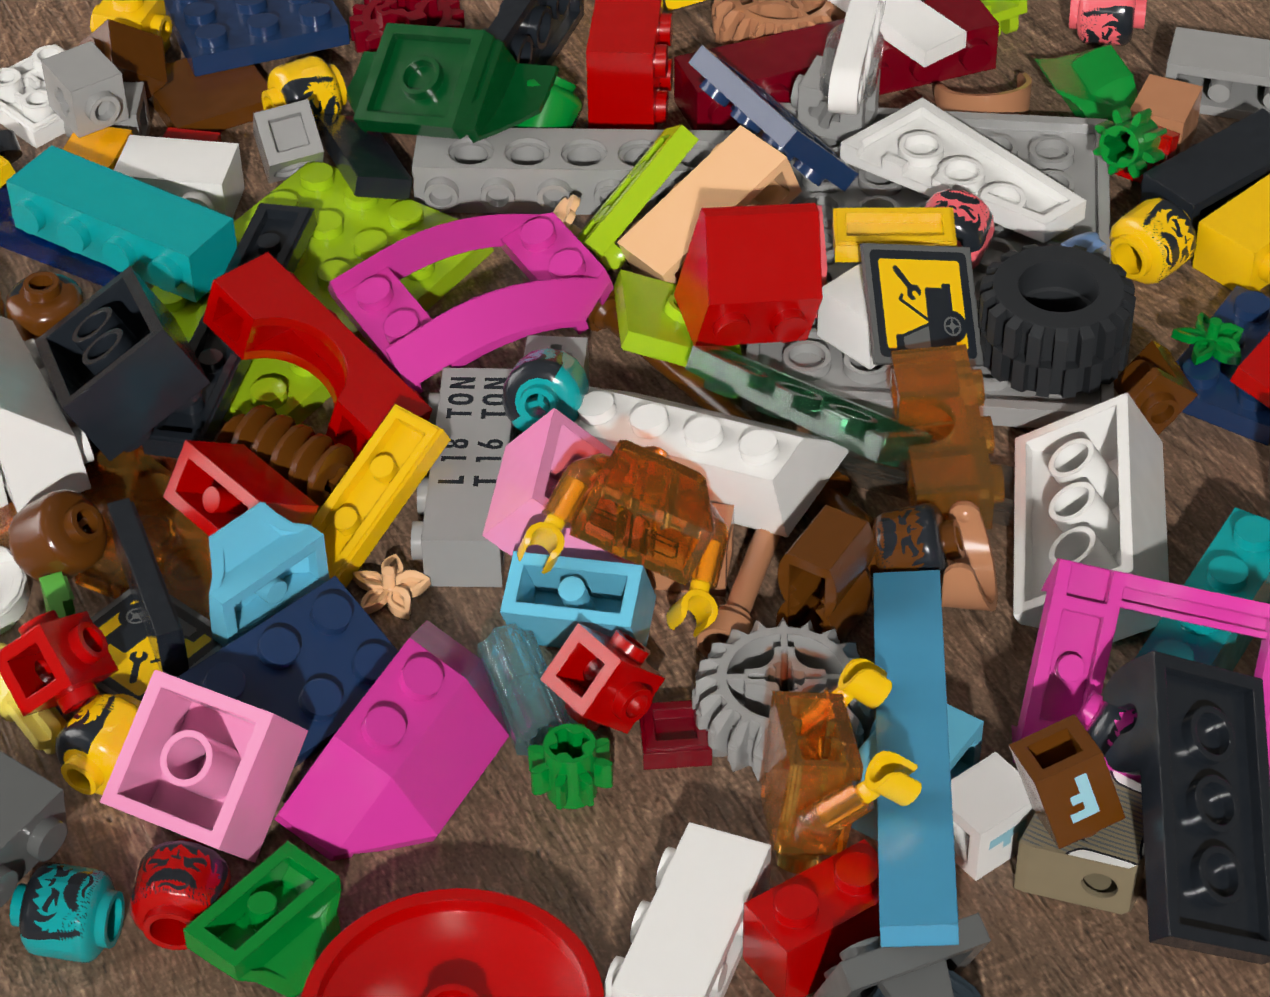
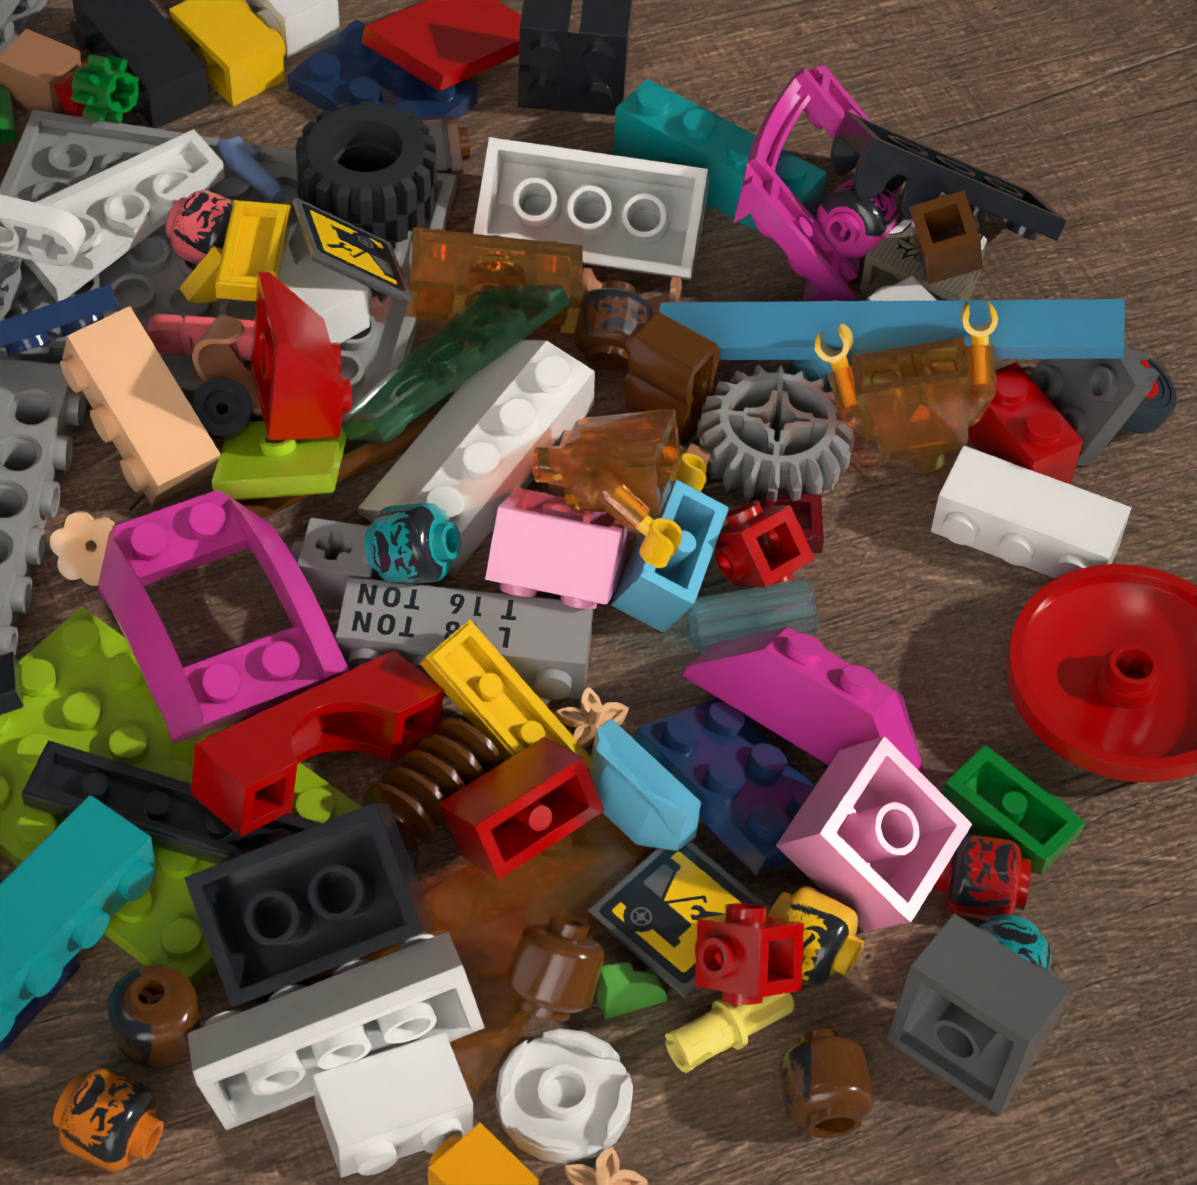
camera: 90 degrees left, 10 degrees up
(148, 588) = (643, 883): black tile -> none
(570, 766) = (846, 586): green gear -> none
(633, 195) = (89, 453): lime hinge -> none
(1152, 241) = (225, 108): yellow head -> none
(1212, 339) = (382, 91): green plant -> none

